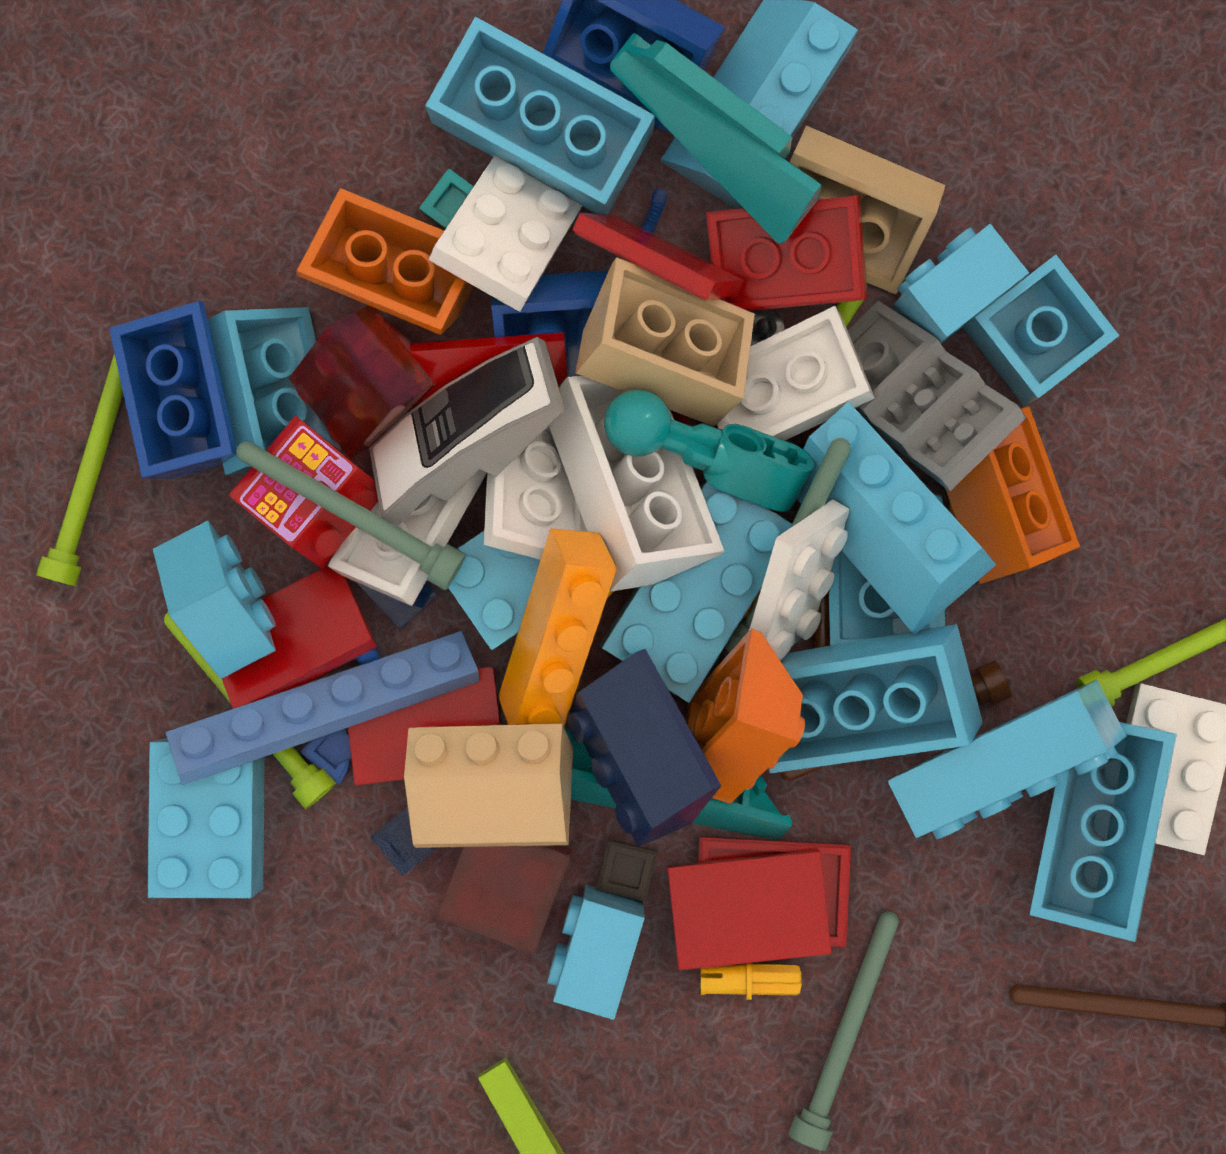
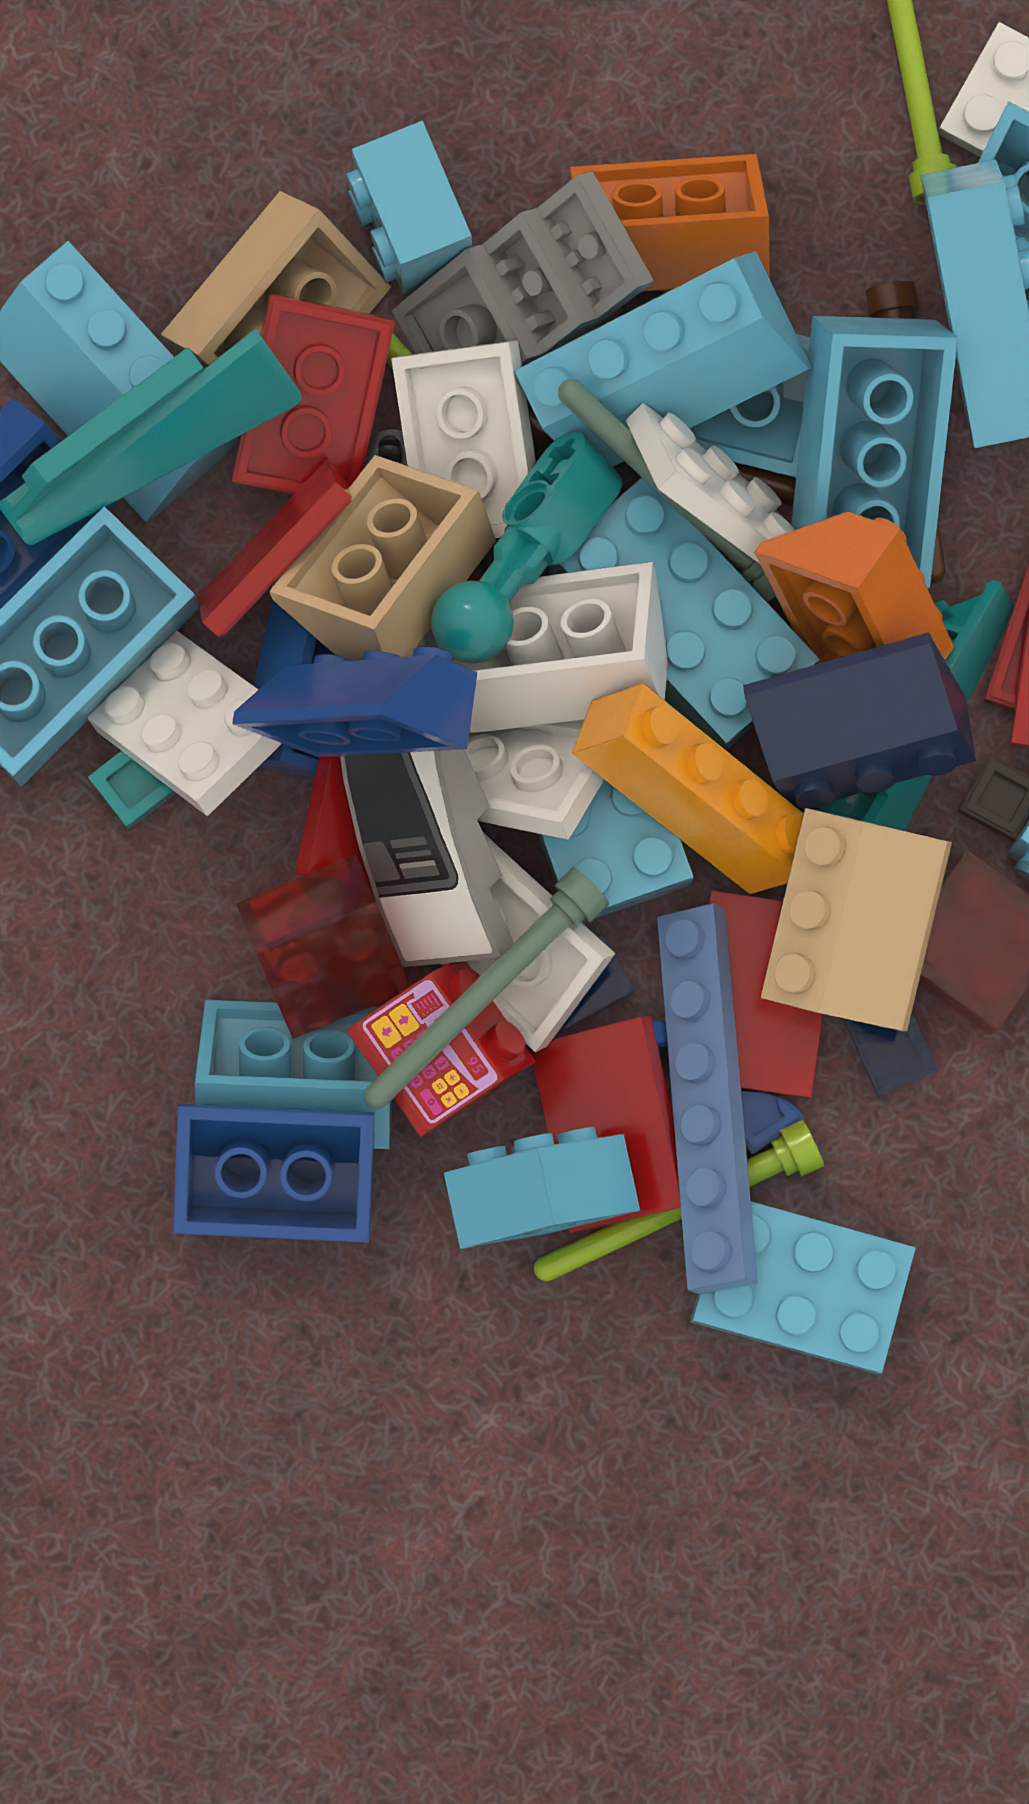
camera: 80 degrees left, 5 degrees down
(62, 562) = (437, 1385): lime piece -> none
(384, 263) = (188, 876): orange slope -> none
(542, 353) = (366, 704): none -> blue slope
(658, 206) = (209, 546): blue leg -> none
(1040, 331) = (490, 126): medium azure brick -> none

